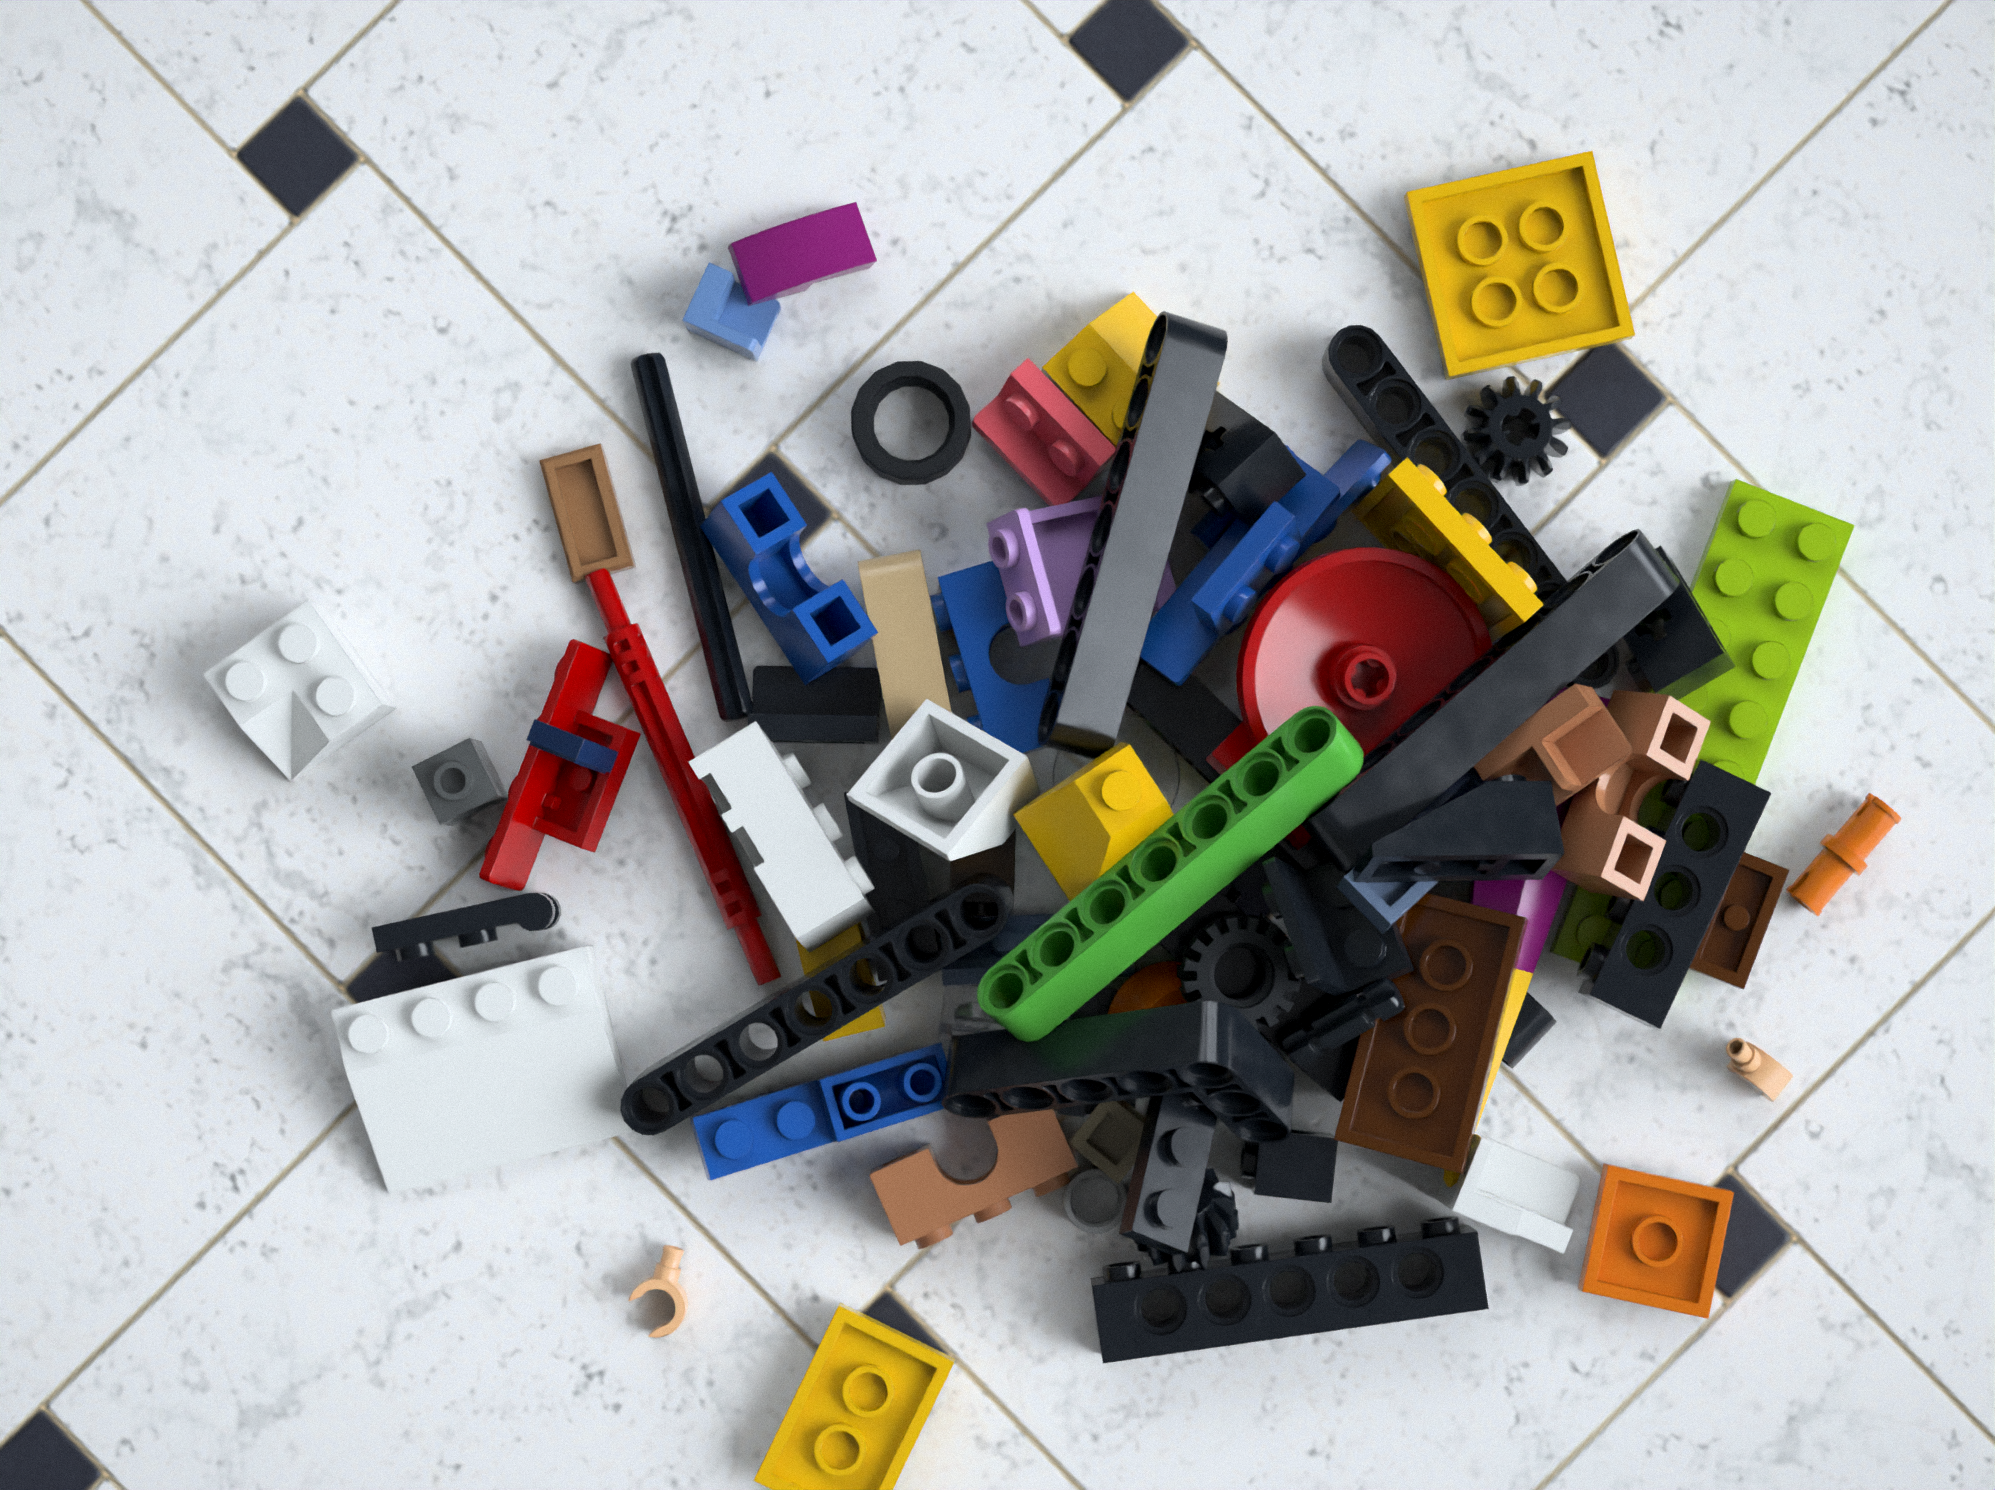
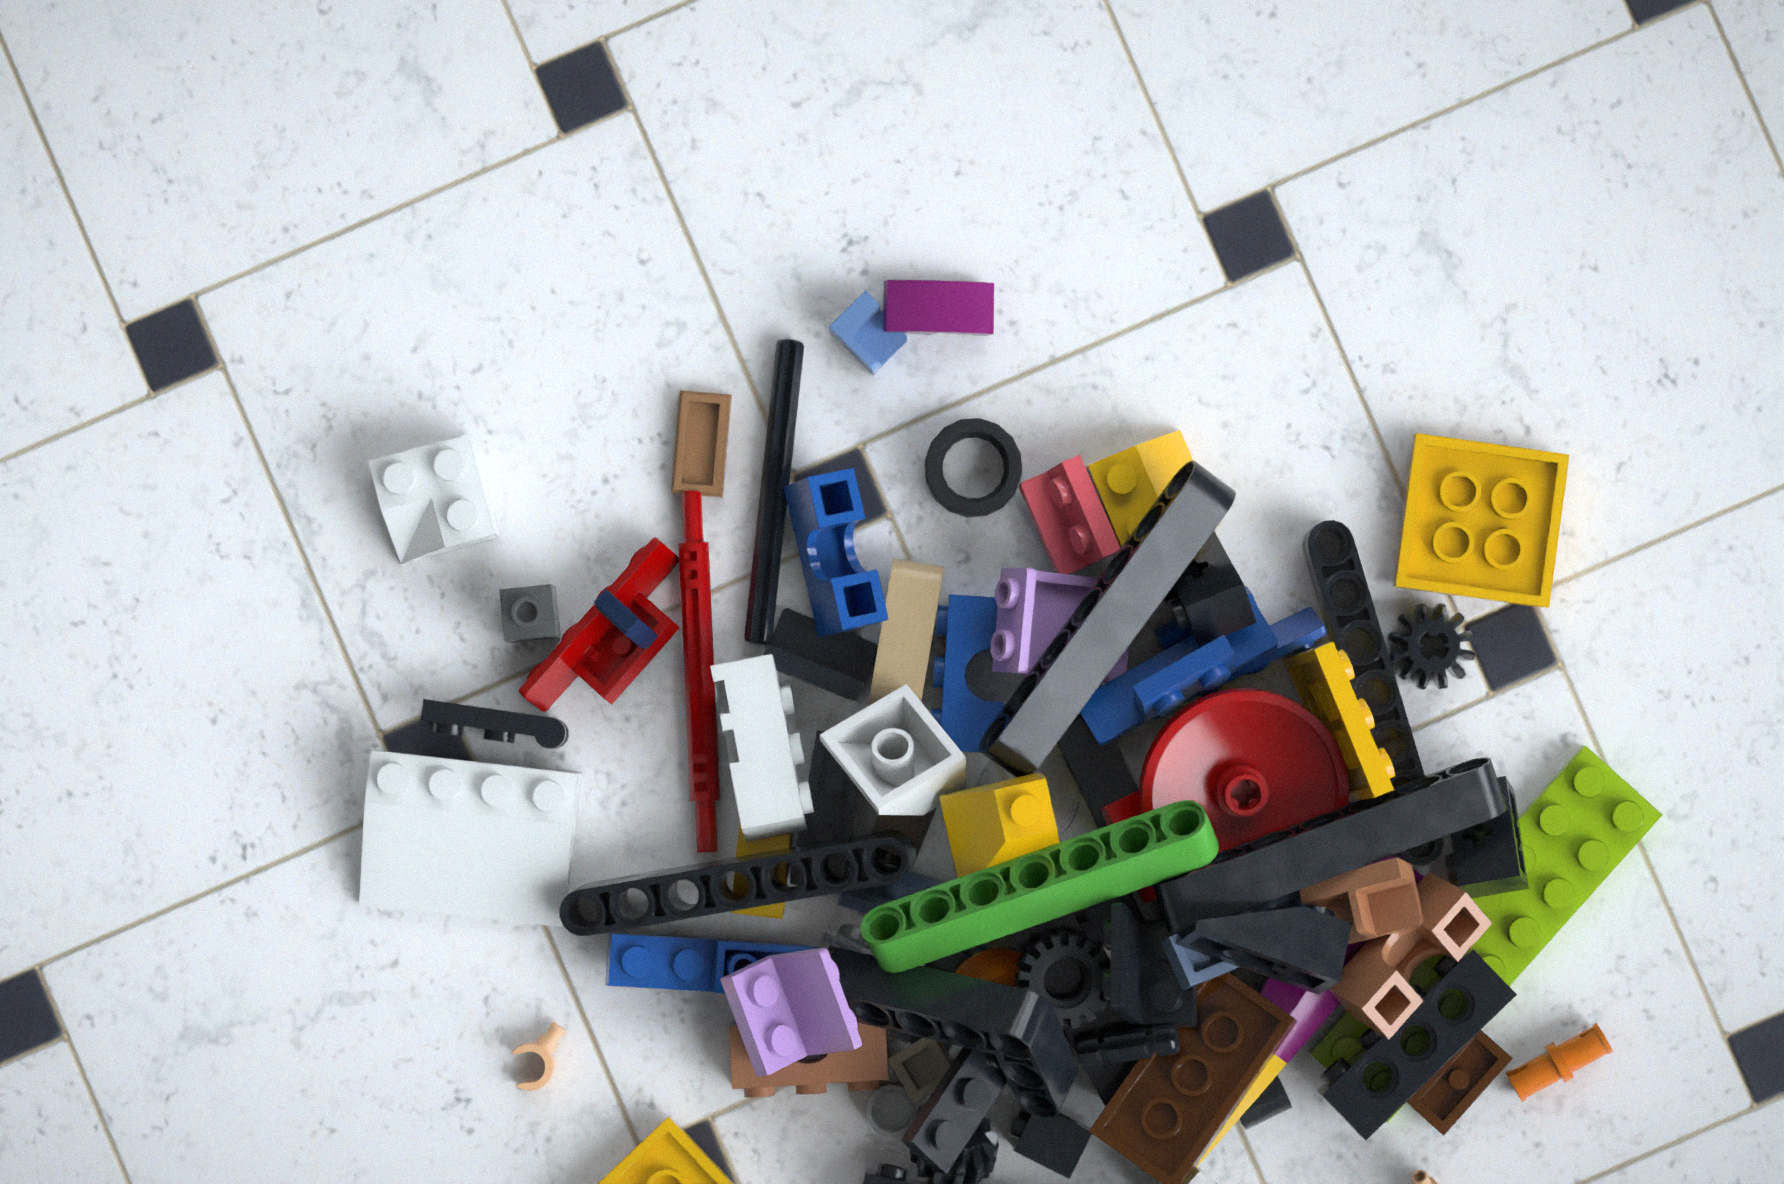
camera: 20 degrees right, 0 degrees up
(932, 1128) = (790, 1009): none -> lavender bracket

